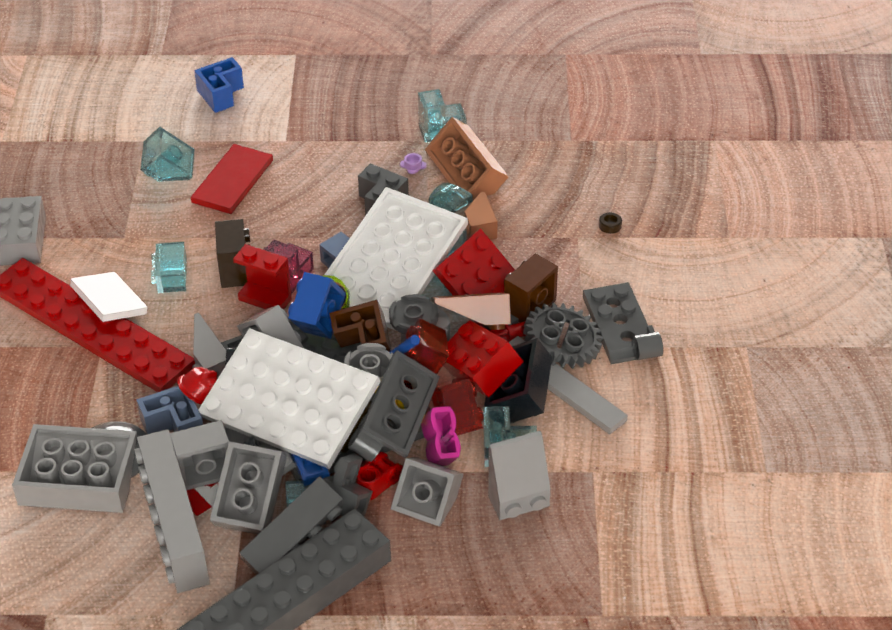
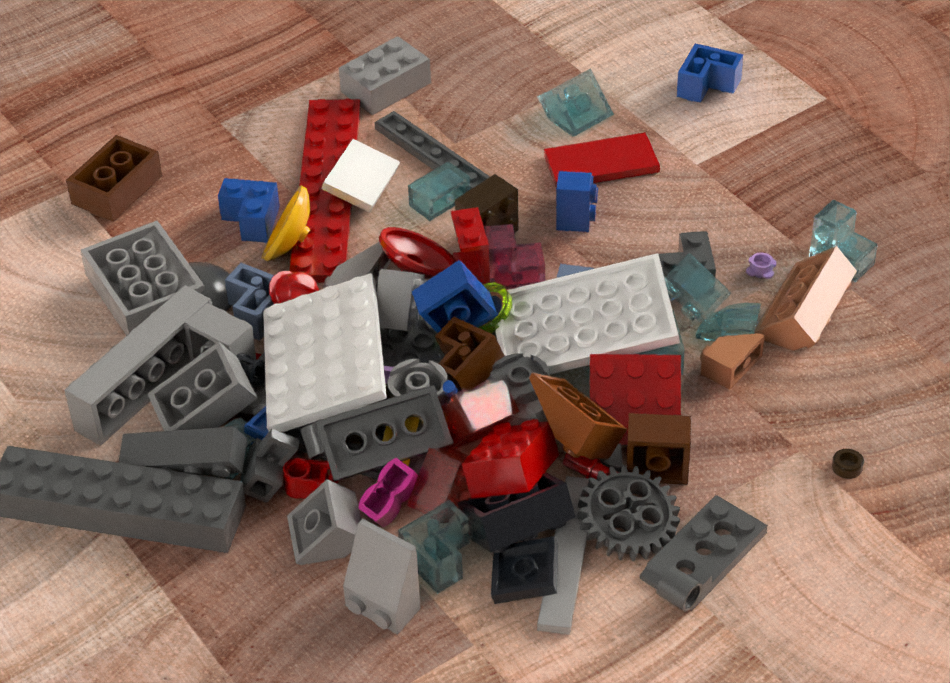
camera: 55 degrees right, 0 degrees up
(67, 368) = (252, 205): none -> blue brick
(117, 252) = (425, 146): none -> dark grey tile
(121, 356) = (290, 226): none -> yellow dish
(229, 308) = (414, 252): none -> red dish
(264, 206) = (574, 201): none -> blue brick
(425, 187) = (695, 288): none -> clear light blue brick
(566, 409) = (525, 570): none -> black plate

